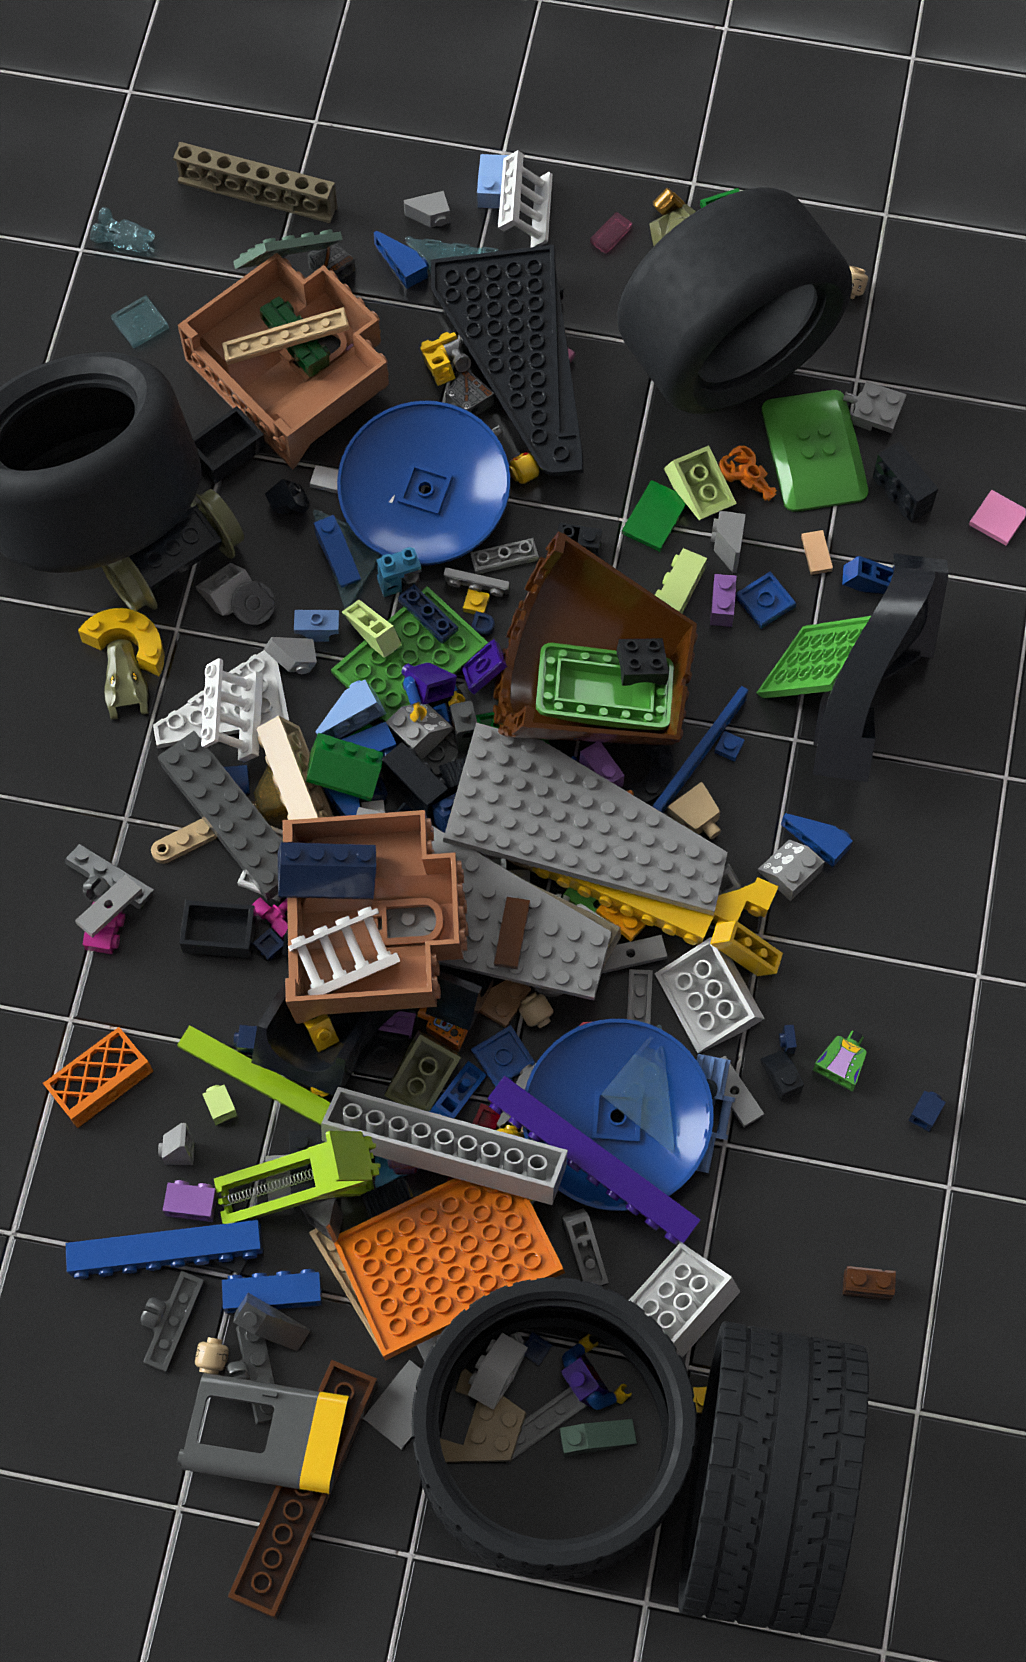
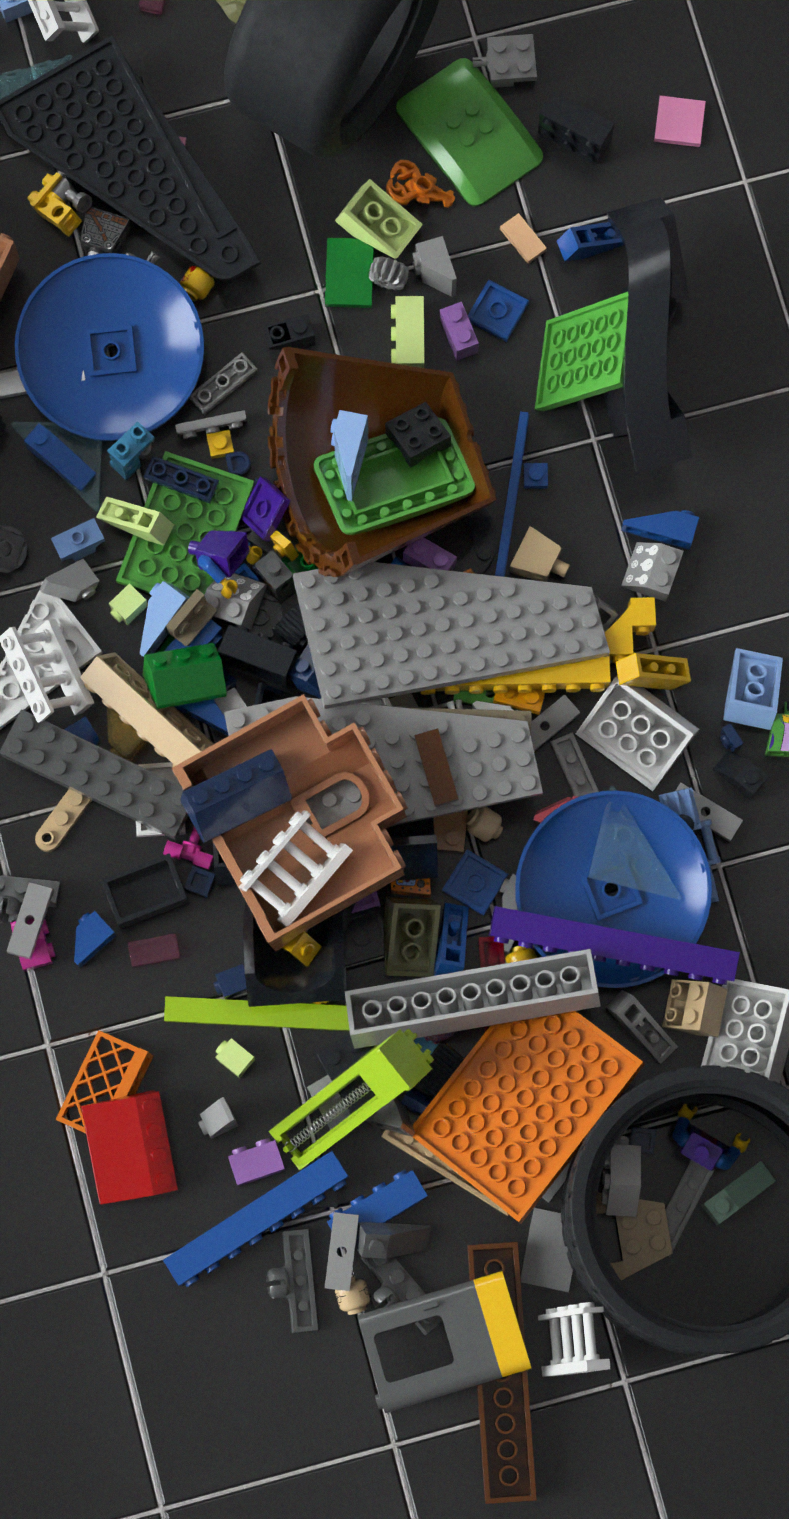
camera: 25 degrees left, 10 degrees up
(88, 1133) = (129, 1147): none -> red slope
(153, 947) = (91, 937): none -> blue slope
(201, 983) = (154, 950): none -> clear pink tile
(229, 1297) = (342, 1235): none -> light grey tile
(328, 692) = (127, 605): none -> yellowish green brick
(353, 1214) = (416, 1100): none -> dark blue plate
(373, 722) = (191, 618): none -> dark tan bracket
(378, 1488) = (580, 1363): none -> white fence
(483, 703) = (283, 546): none -> yellow plate
(580, 643) = (350, 444): none -> light blue slope
(640, 1255) = (695, 1007): none -> tan slope
(687, 528) = (388, 273): none -> light grey gear
(829, 1007) = (753, 689): none -> light blue slope

